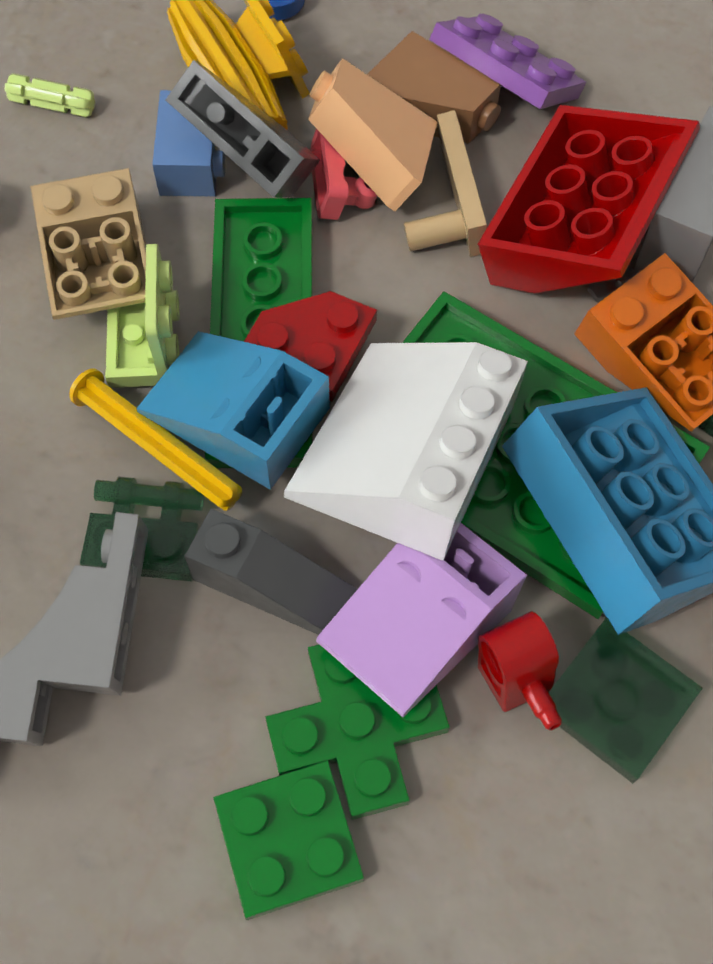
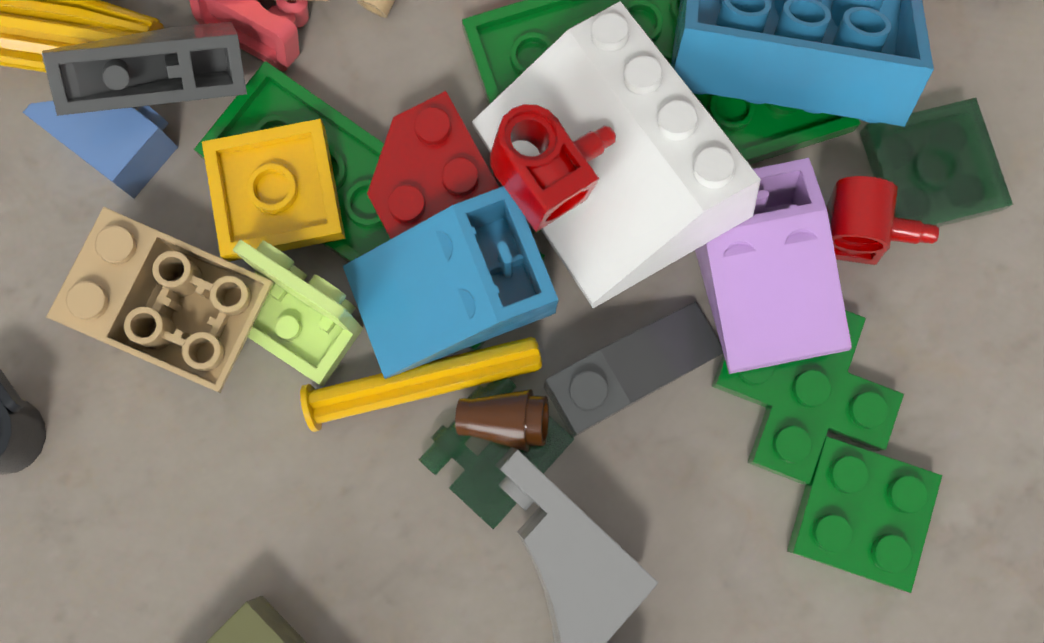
camera: 55 degrees left, 15 degrees up
(164, 507) = (507, 419): none -> reddish brown cone
(222, 256) = (273, 188): none -> yellow plate
(346, 390) = (558, 177): none -> red piece

